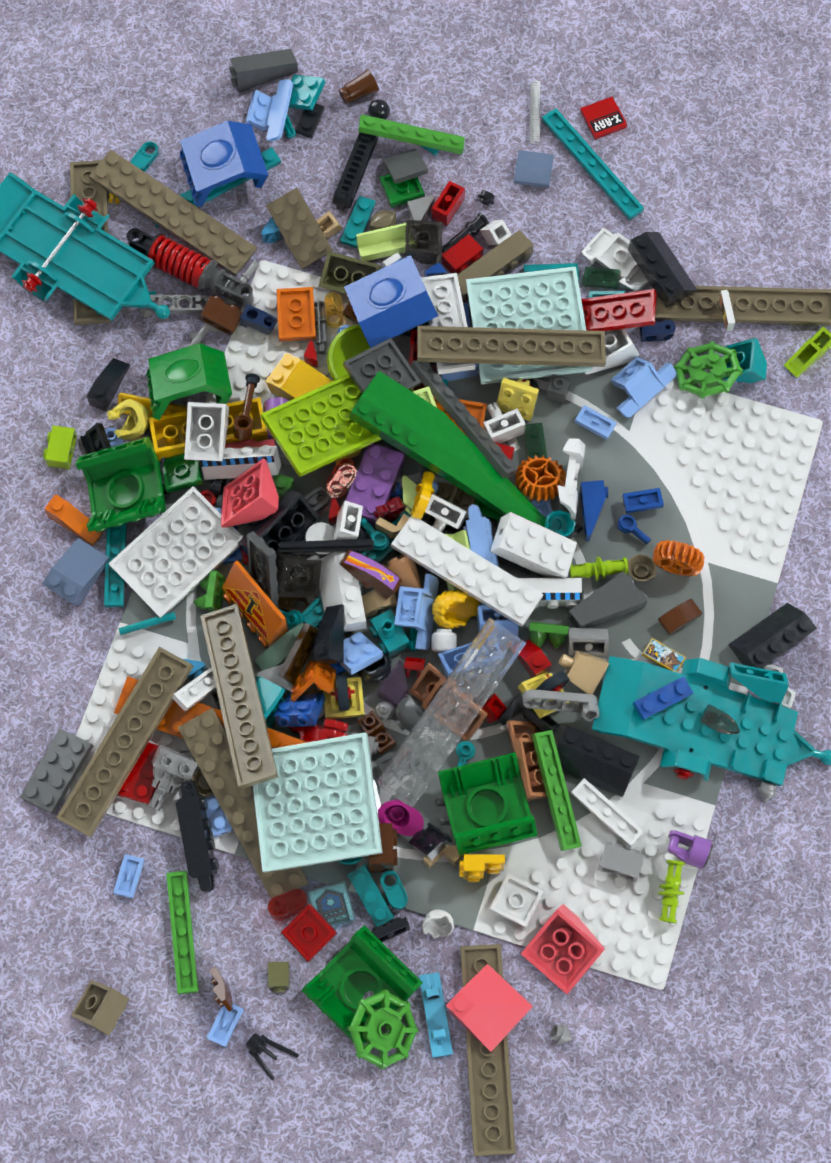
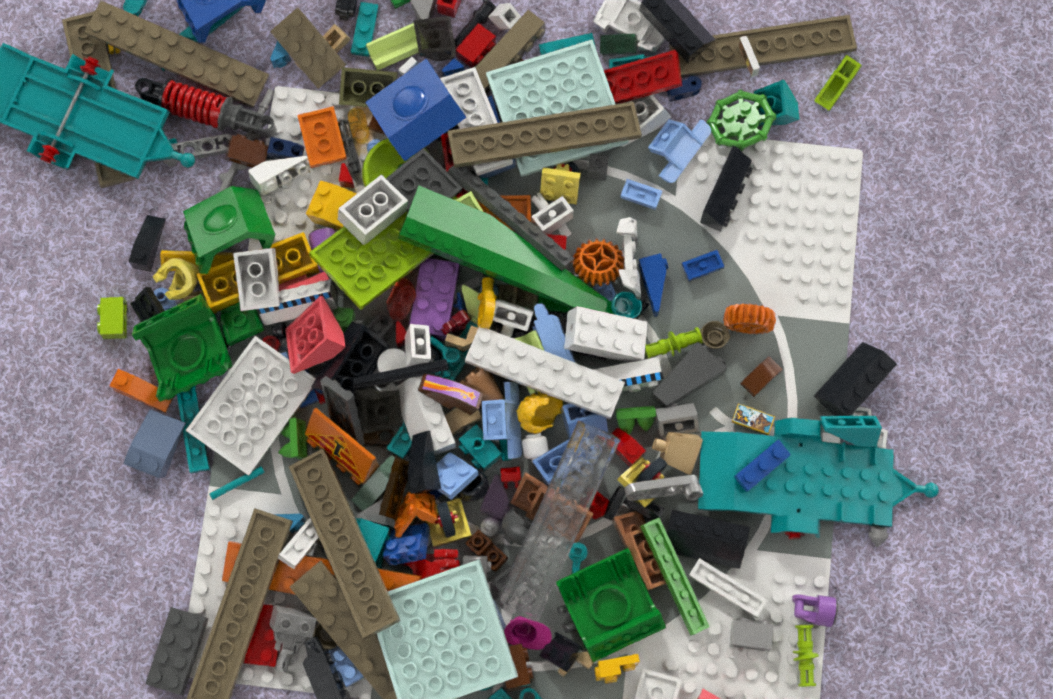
camera: 10 degrees left, 5 degrees up
(245, 339) = (275, 173): none -> white slope
(245, 420) = (293, 259): reddish brown piece -> none
(293, 618) = (381, 451): teal plate -> none
(329, 385) = (372, 209): none -> white brick
(382, 220) = (389, 23): dark tan hat -> none
(535, 440) = (585, 224): clear green plate -> none
(628, 524) = (692, 292): blue plate -> none
(679, 432) = (726, 190): none -> black slope
(719, 721) = (820, 477): clear smoke plate -> none

